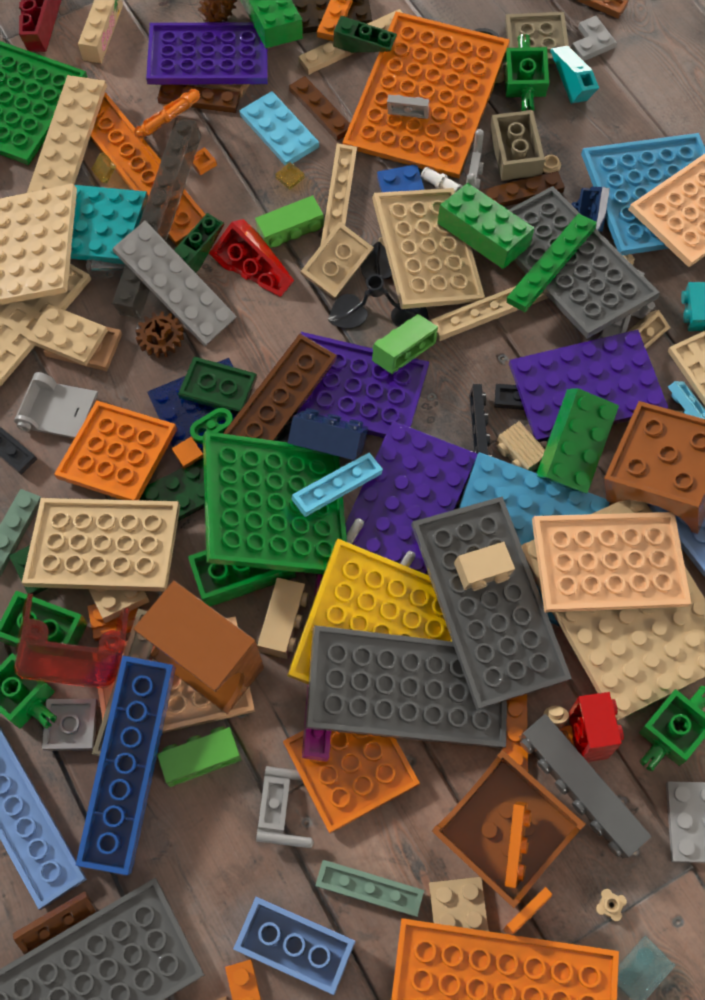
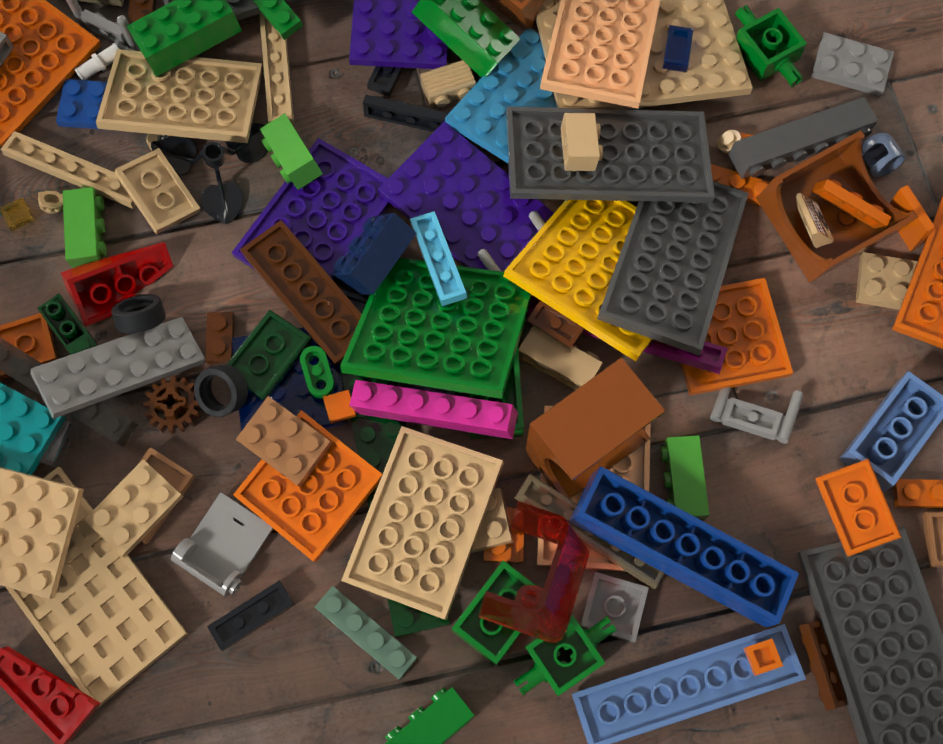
camera: 75 degrees left, 5 degrees up
(46, 861) = (763, 657): none -> orange plate
(144, 420) = (284, 441): none -> medium nougat plate
(176, 361) = (204, 393): none -> black tyre
(194, 565) = (434, 409): none -> dark pink brick
(204, 919) = (857, 507): none -> orange tile
(225, 283) = (138, 313): none -> black tyre
(232, 348) = (219, 337): none -> reddish brown plate
(303, 600) = (555, 325): none -> reddish brown plate
(305, 190) = (50, 201): none -> tan animal
(369, 888) = (852, 352): sand green plate -> none
(484, 809) = (813, 221): none -> tan slope
(595, 726) = (760, 102): red brick -> none
(595, 880) = (887, 153): none -> sand blue helmet
(604, 908) = (912, 160): tan plate -> none
(630, 635) = (677, 48): none -> clear blue tile

